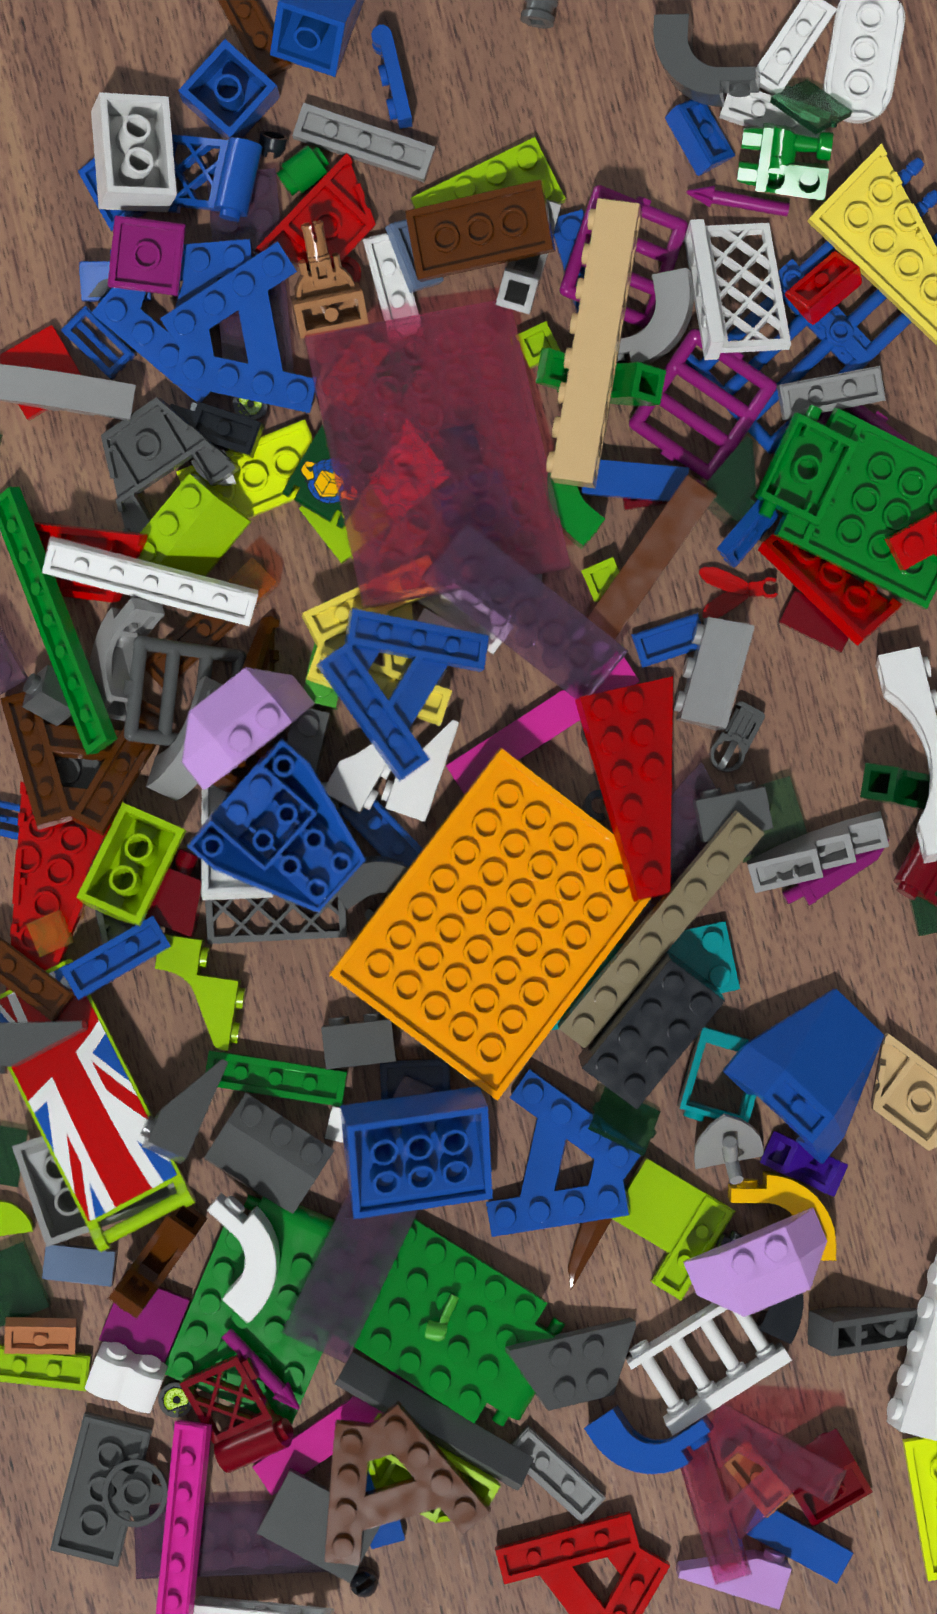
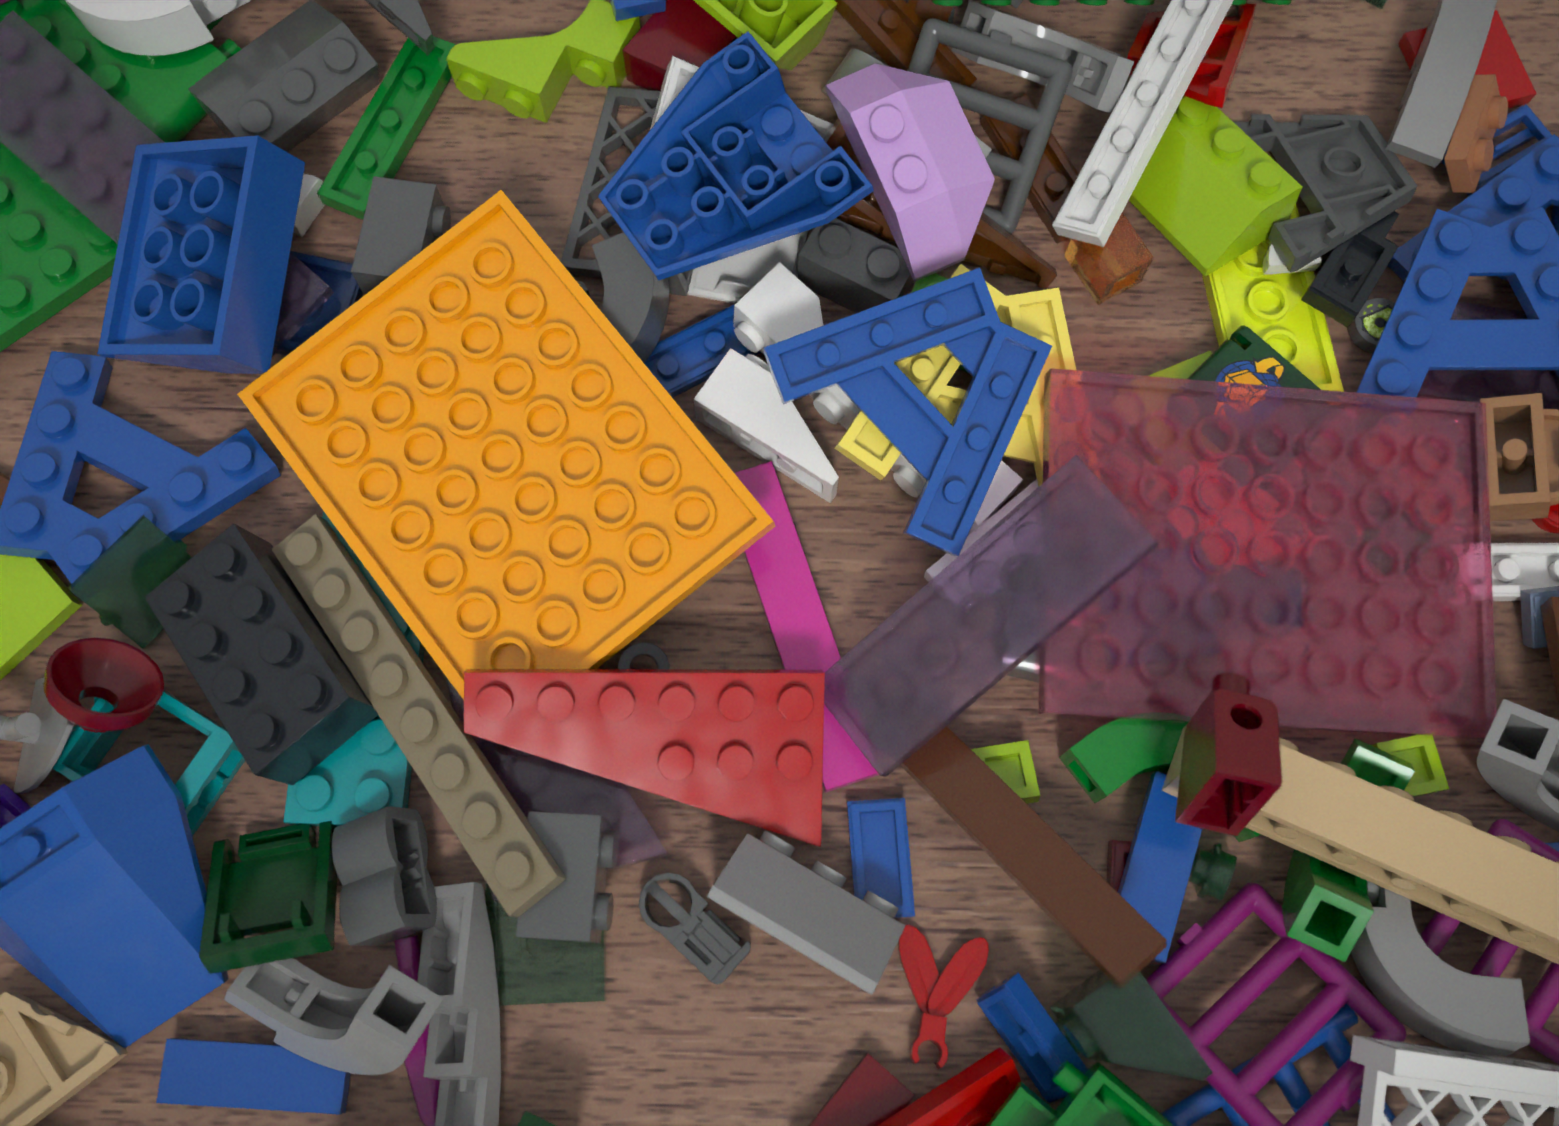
camera: 105 degrees right, 15 degrees down
(114, 366) = (1472, 139): none -> nougat plate
(580, 461) = (1229, 758): none -> dark red torso
(628, 448) = (1212, 871): none -> clear green plate
(688, 1100) = (105, 671): none -> dark red piece
(756, 918) = (383, 877): none -> dark grey brick
(778, 979) = (273, 887): none -> dark green container
(842, 916) = (334, 1023): none -> light grey arch
(879, 957) = (248, 1078): none -> blue tile

